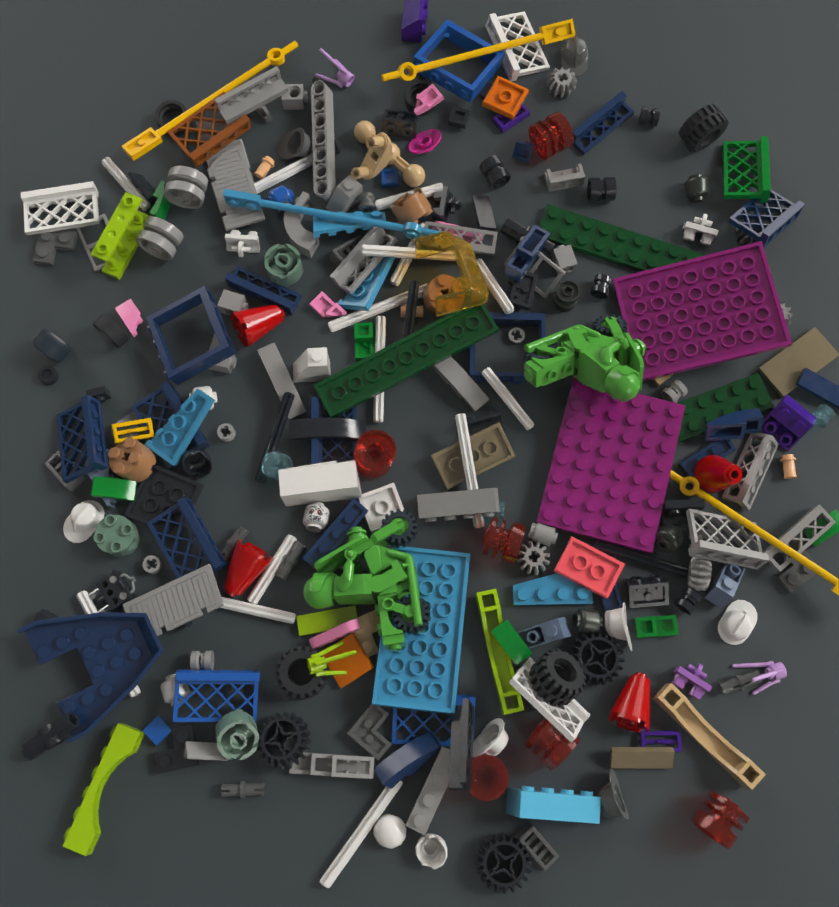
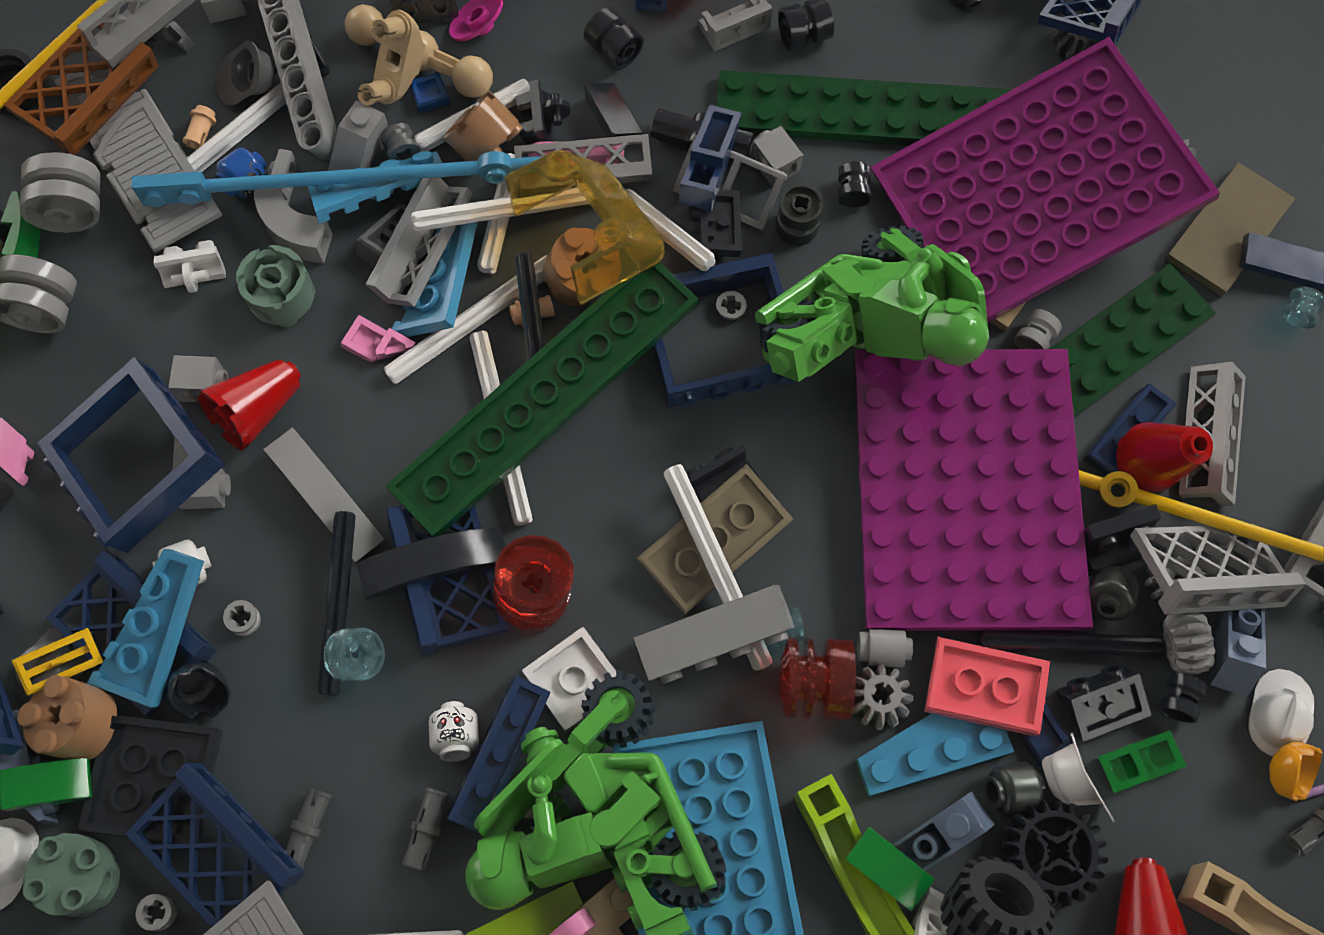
camera: 15 degrees left, 5 degrees down
(245, 566) = (340, 867): red cone -> none
(262, 294) = (251, 347): dark blue fence -> none
(271, 569) = (390, 865): white axle -> none
(312, 365) = (374, 451): white slope -> none
(319, 483) = (443, 665): white slope -> none
(363, 340) = (457, 382): green slope -> none
(461, 383) = (656, 413): light grey slope -> none
(508, 399) = (749, 418): white axle -> none
(691, 229) = (993, 45): white hips -> none
(699, 686) = (1221, 841): medium lavender hips -> none
(733, 652) = (1294, 769): none -> light orange hair
(734, 425) = (1162, 362): dark blue slope -> none
(788, 422) = (1249, 334): dark purple slope -> none
(788, 466) = (1276, 409): light nougat pin -> none

